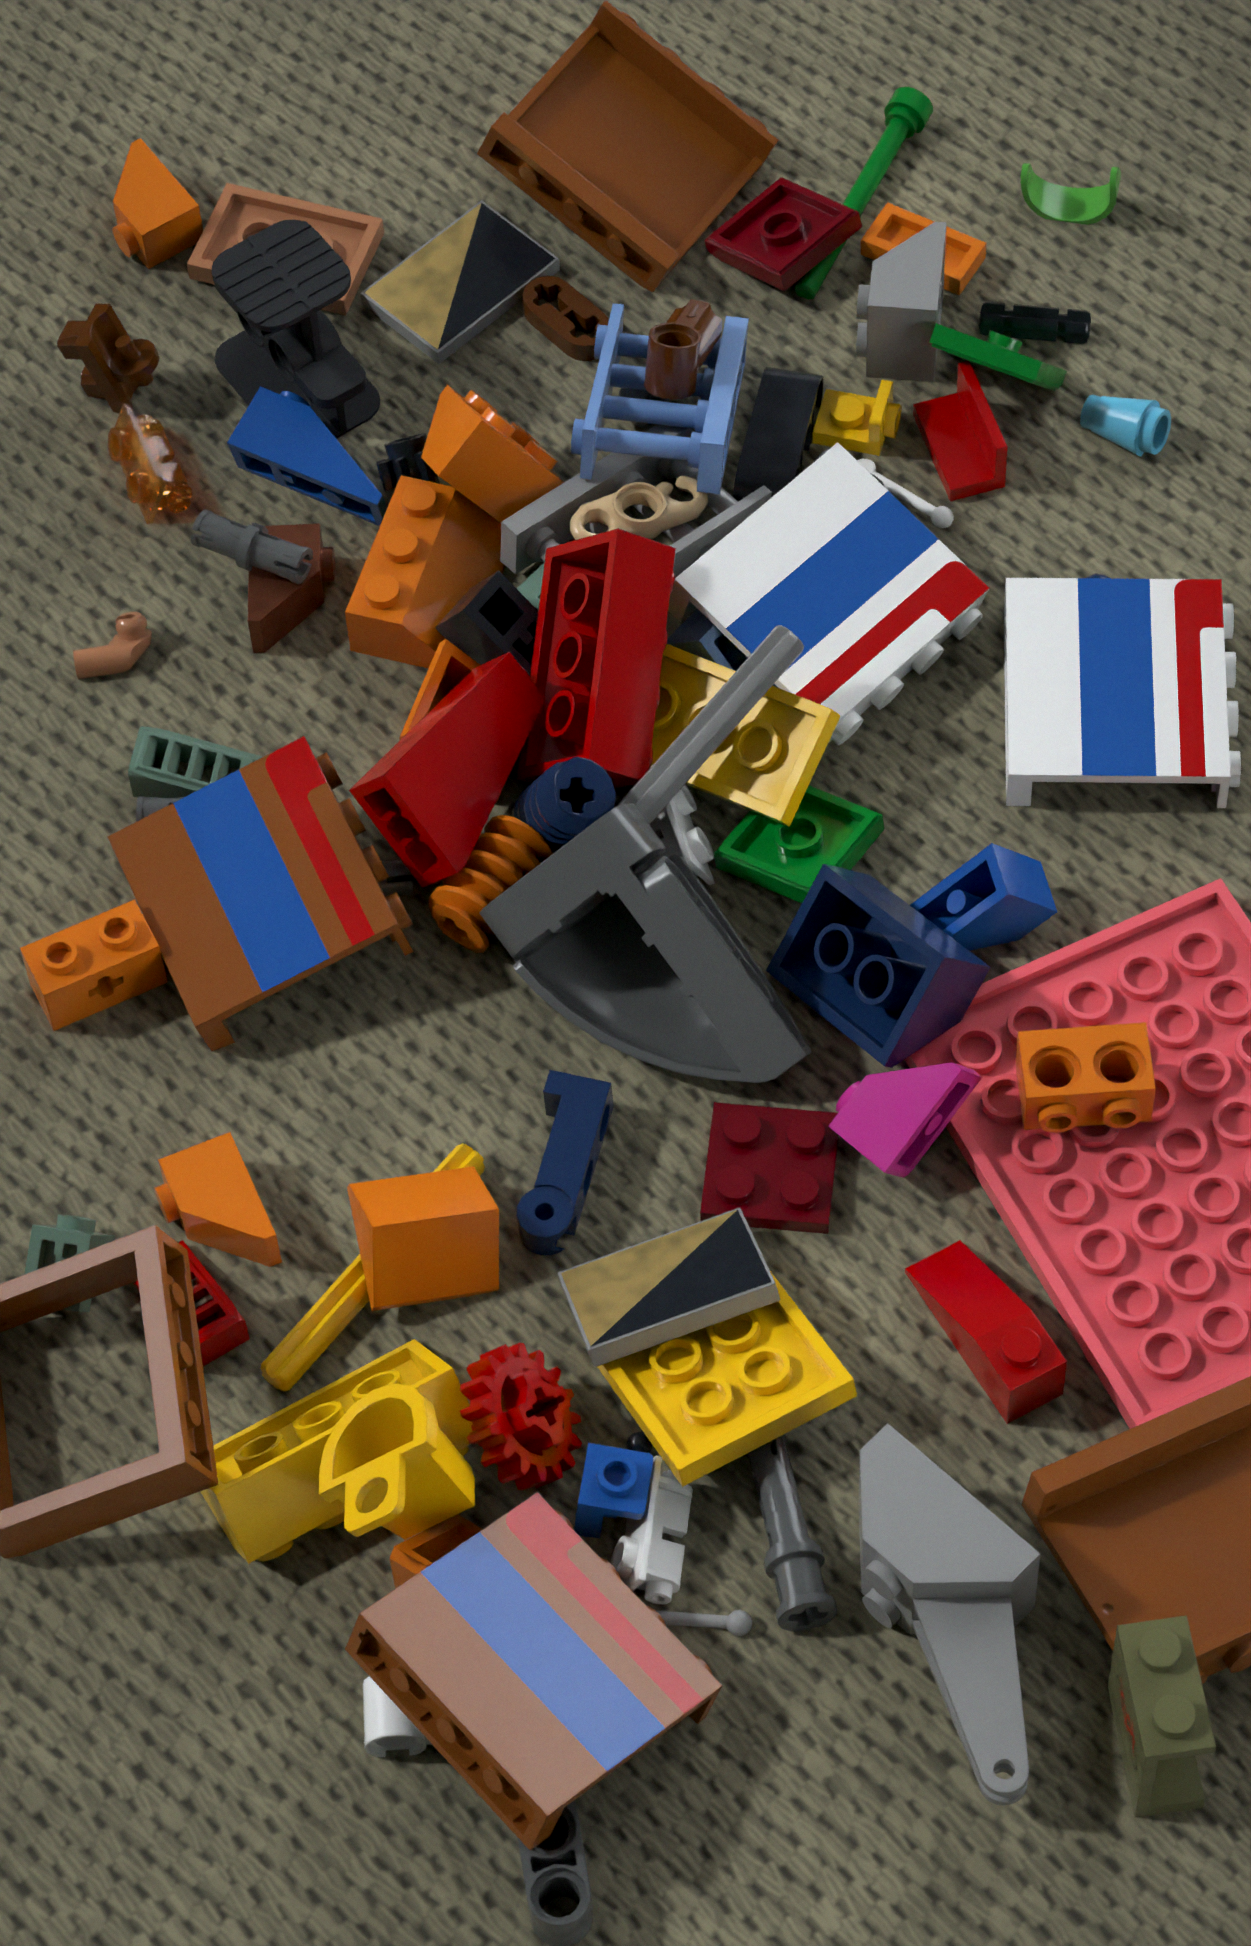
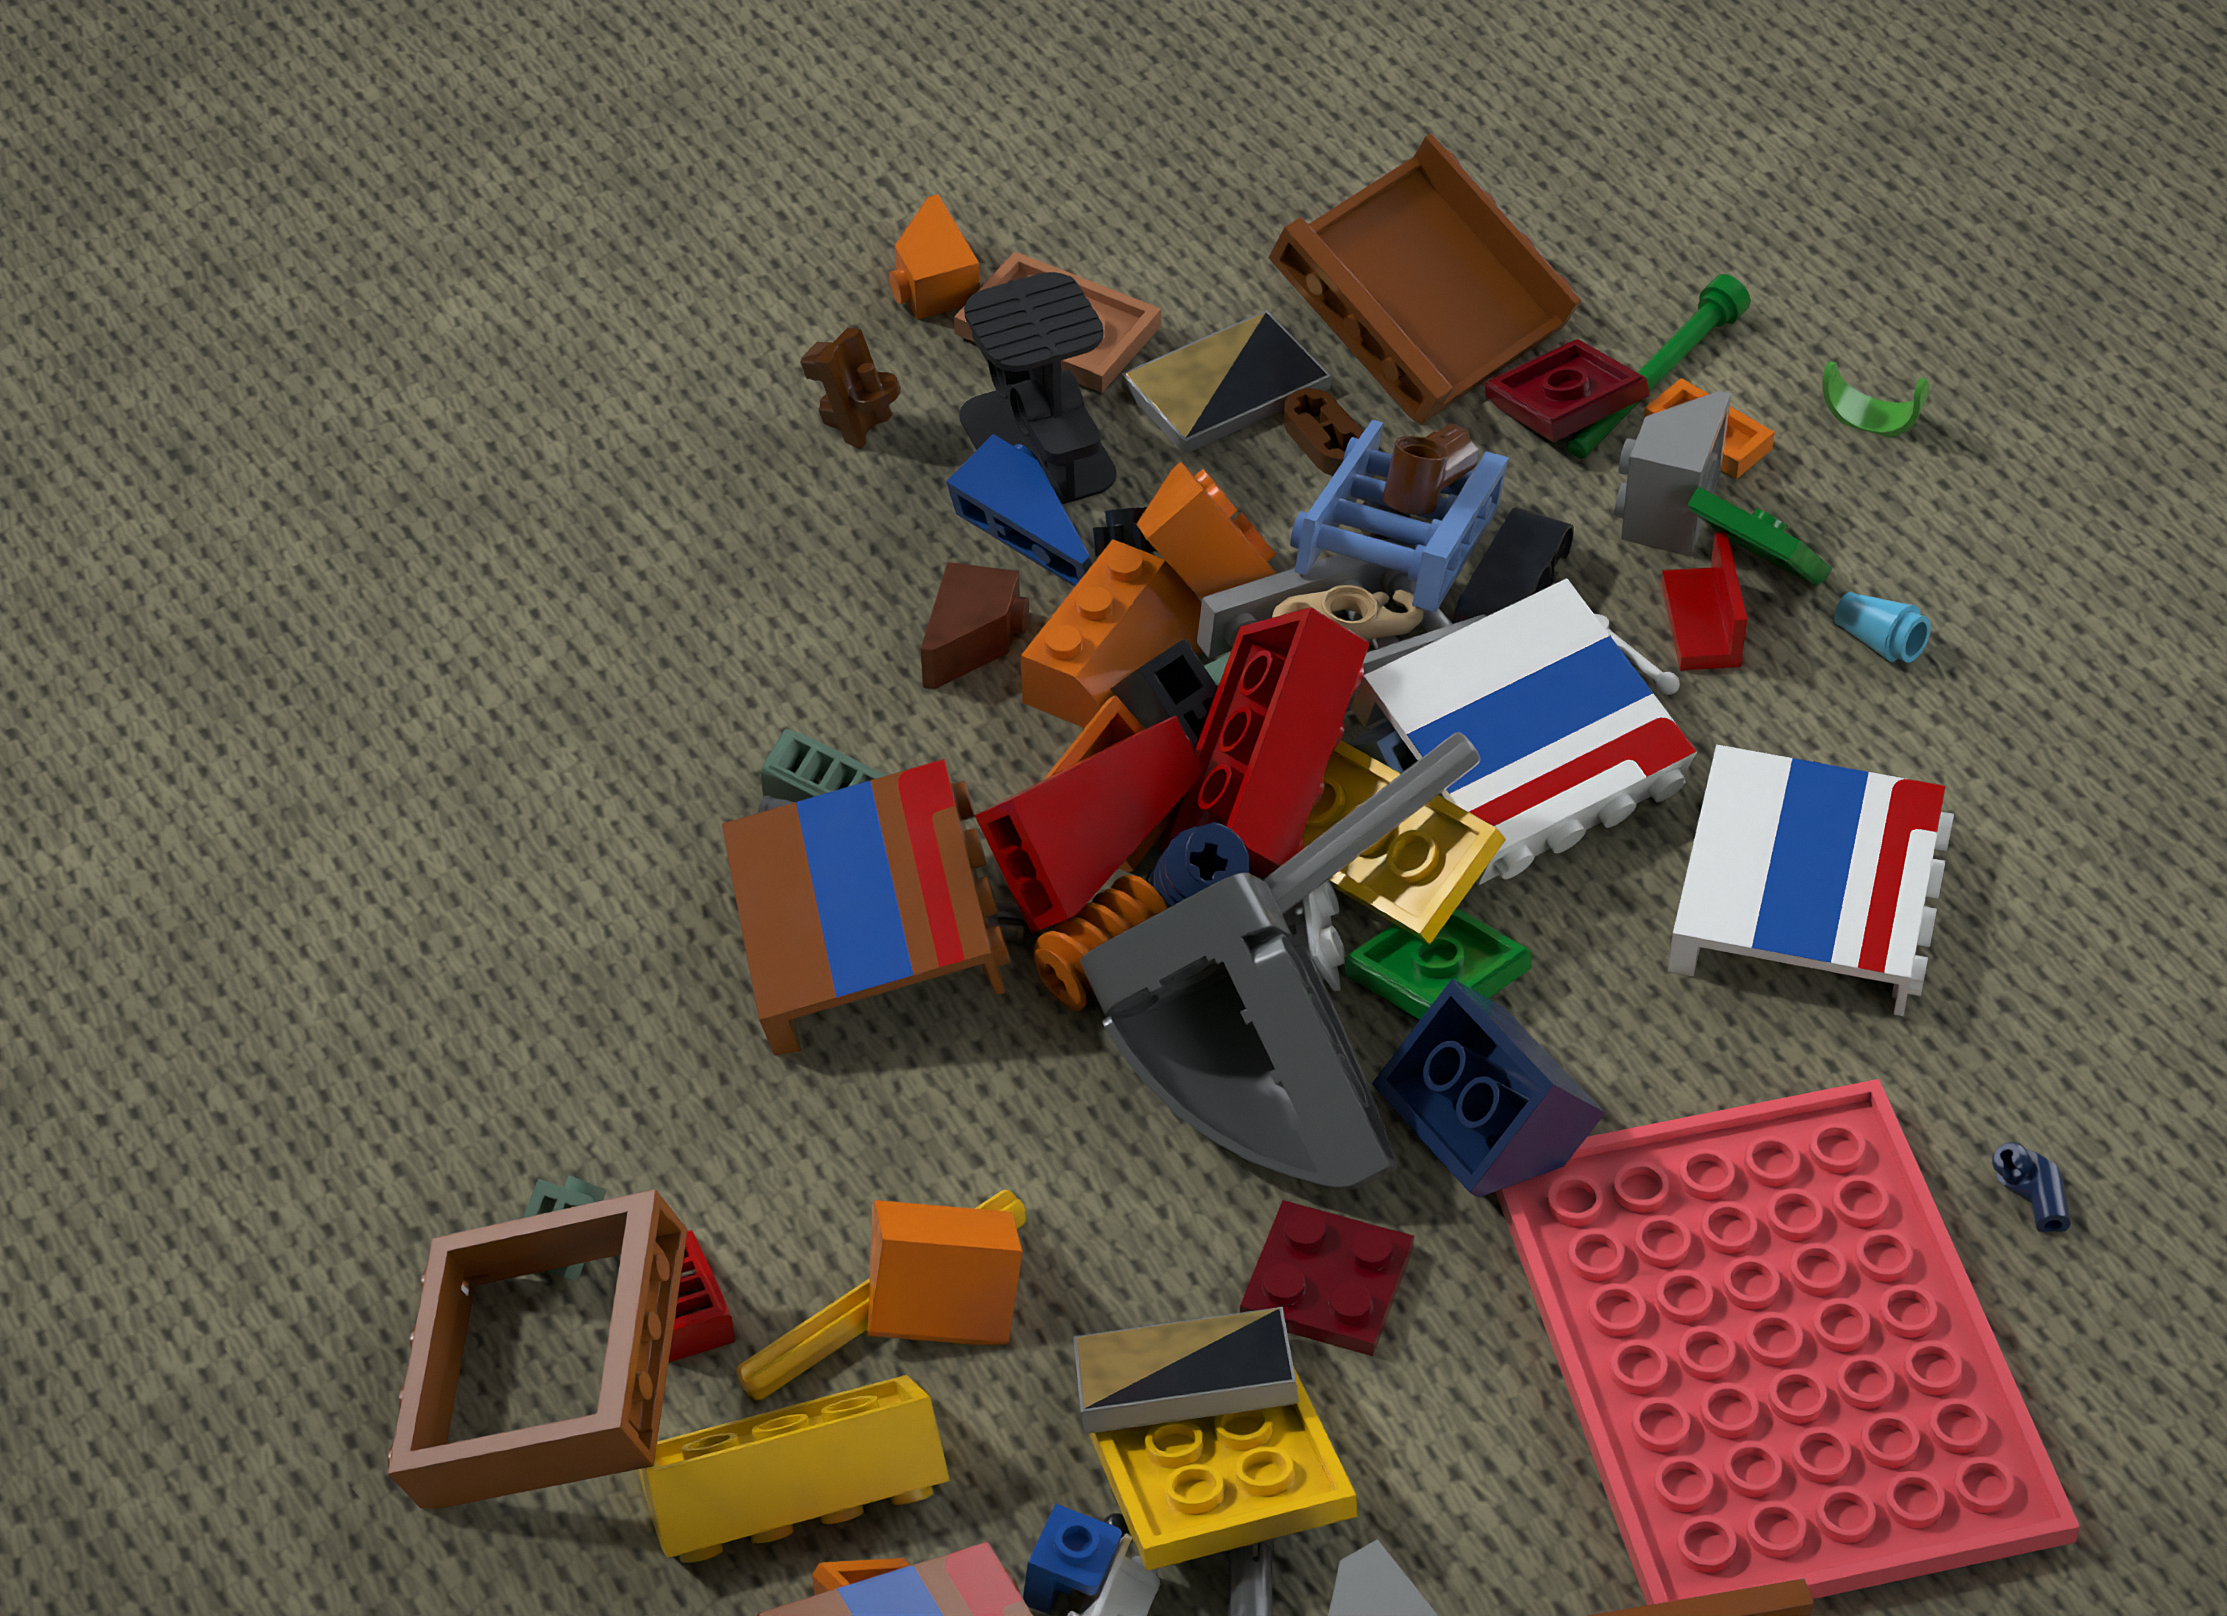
camera: 10 degrees right, 10 degrees down
(94, 965) = (675, 945): orange brick -> none
(120, 653) = (788, 662): nougat arm -> none
(139, 448) = (865, 493): clear orange hinge -> none
(217, 1201) = (736, 1195): orange slope -> none
(252, 546) = (943, 577): dark grey pin -> none
(394, 1465) = (842, 1481): yellow container -> none
(520, 1416) = (992, 1465): red gear -> none
(574, 1144) = (1135, 1193): dark blue leg -> none
(858, 420) = (1603, 577): yellow bracket -> none
(901, 1112) = (1479, 1242): dark pink slope -> none
(990, 899) = (1626, 1053): blue slope -> none
(991, 1330) = (1523, 1487): red slope -> none
(1035, 322) = (1813, 517): black axle -> none
(1082, 1062) = (1695, 1239): orange brick -> none

